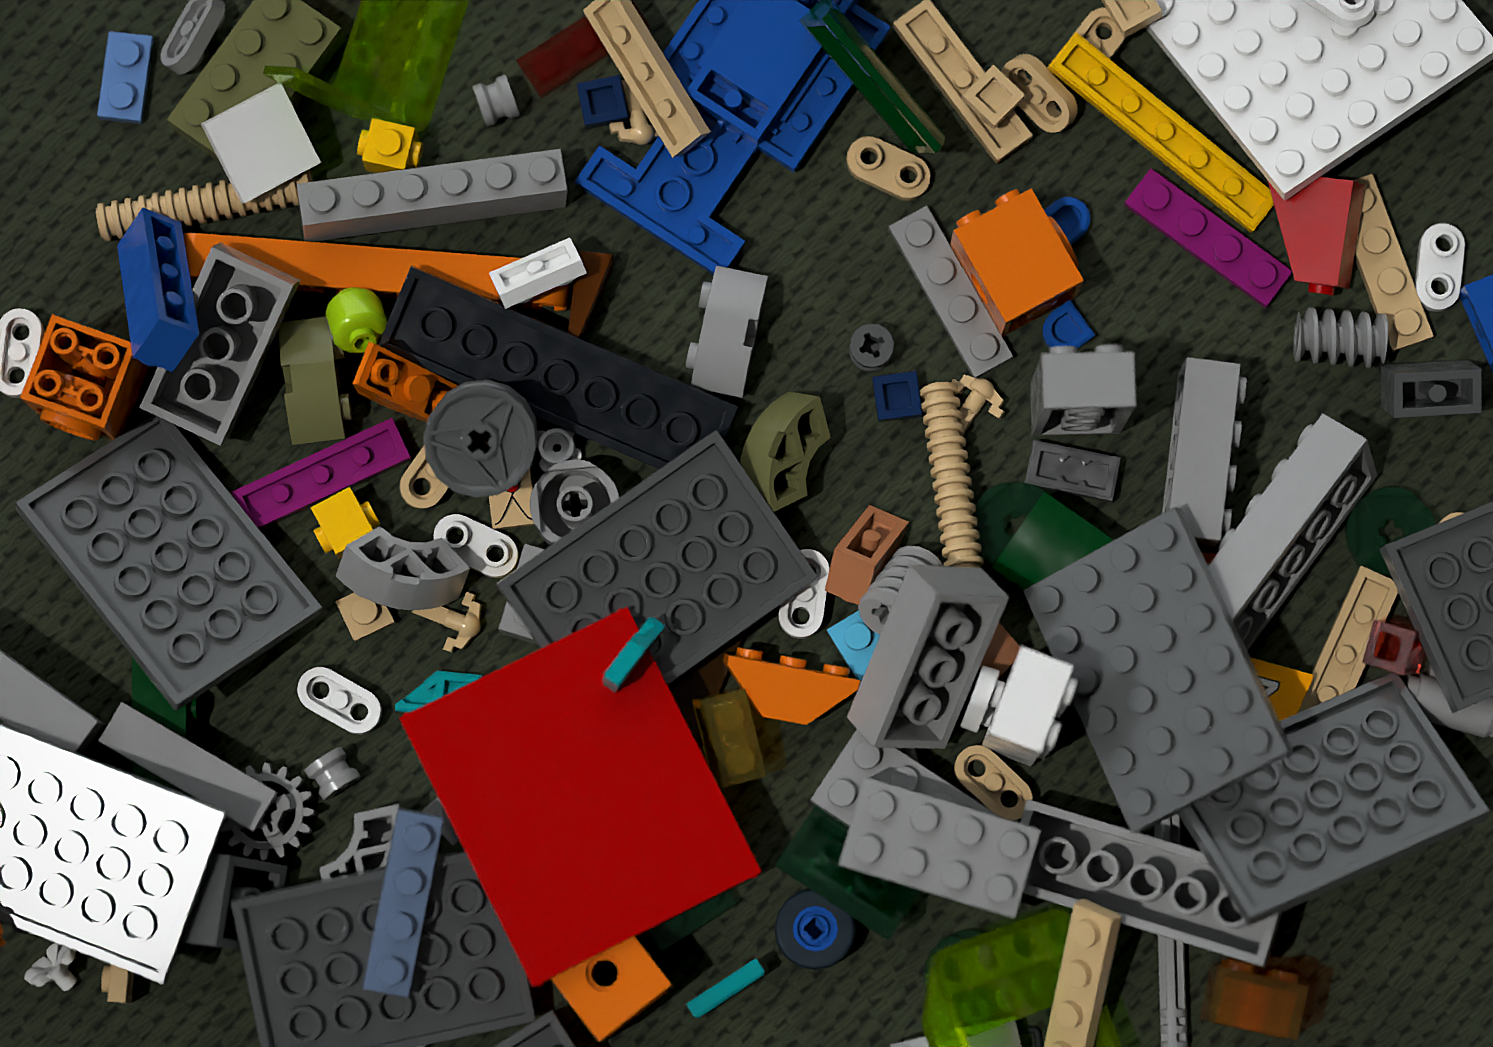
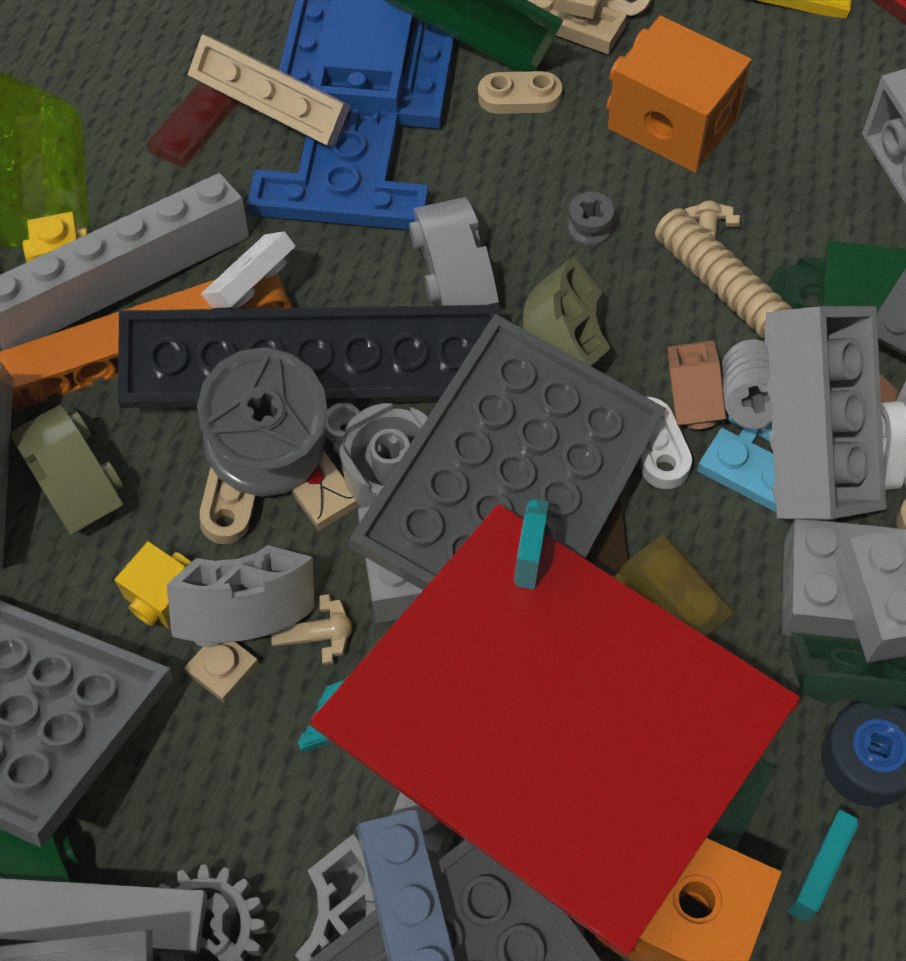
camera: 25 degrees left, 20 degrees down
(323, 474) = (89, 578): magenta plate -> none
(332, 773) = (261, 848): light grey wheel -> none
(340, 701) = (236, 766): white plate -> none
(355, 319) = (86, 389): lime head -> none
(399, 383) = (152, 427): orange slope -> none
(476, 543) = (311, 541): white plate -> none
(496, 100) = (142, 177): light grey wheel -> none
(588, 290) = (302, 273): reddish brown slope -> none
(602, 102) = (240, 142): dark blue plate -> none
(641, 130) = (284, 150): tan piece -> none
(788, 688) = (699, 526): orange slope -> none
(897, 396) = (637, 246): dark blue plate -> none
(950, 292) = (632, 155): light grey plate -> none
(1066, 328) = (748, 141): blue tile -> none
(1072, 471) = (811, 235): flat silver plate -> none
(1082, 391) = (814, 133): light grey brick -> none
(1207, 238) = (817, 32): magenta plate -> none

